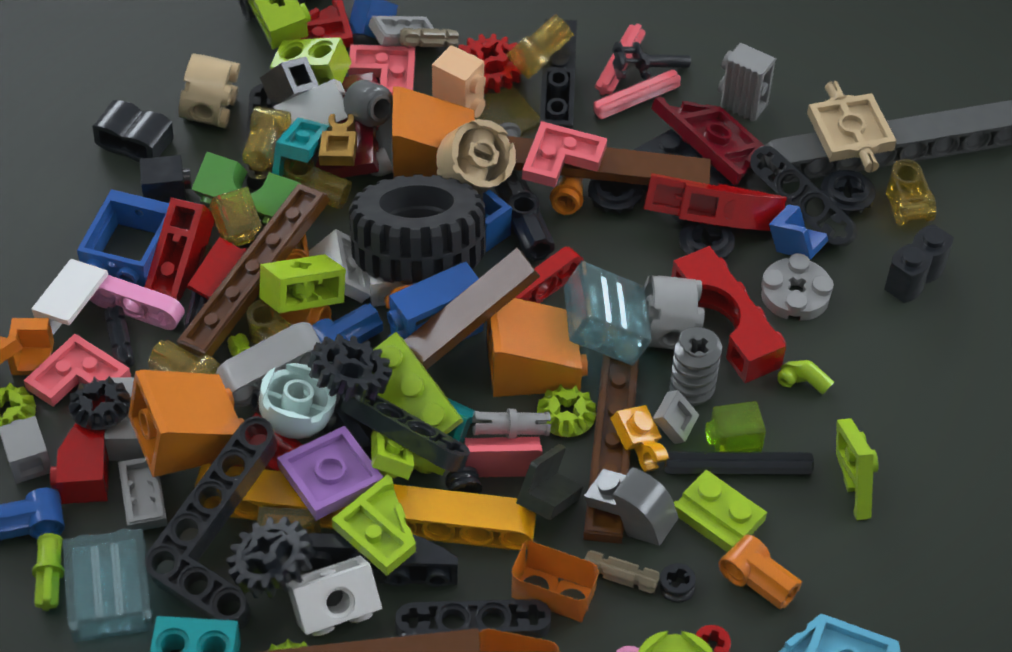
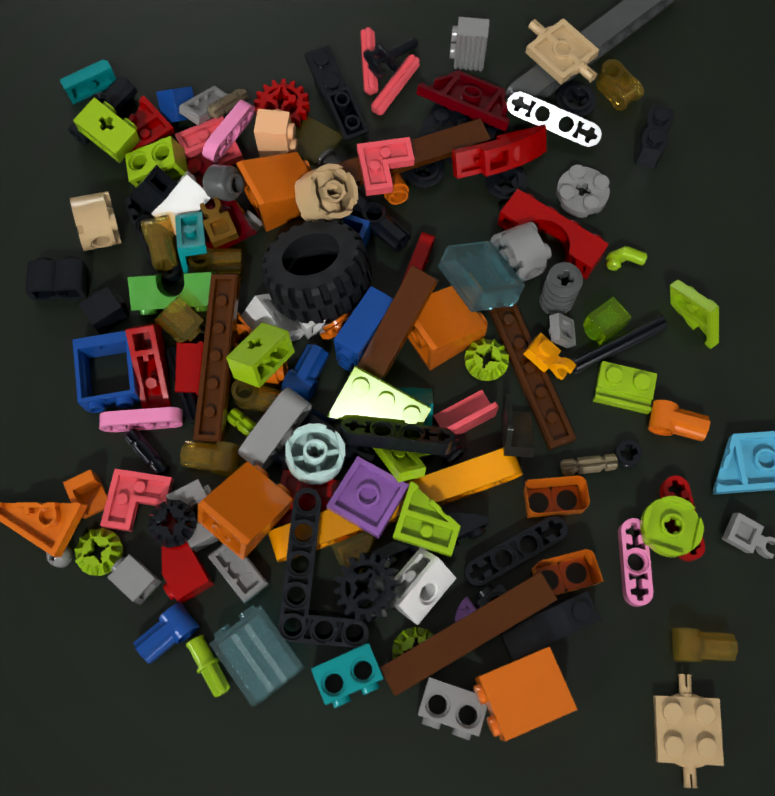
camera: 25 degrees left, 20 degrees up
(69, 293) = (92, 440): white panel -> none
(349, 368) = (341, 415): black gear -> none
(395, 64) = (228, 131): none -> bright pink beam
(511, 423) = (461, 391): light grey pin -> none
(535, 50) = (313, 86): clear yellow piece -> none
(638, 499) = (577, 410): dark grey brick -> none
(792, 236) = (564, 153): blue panel -> none

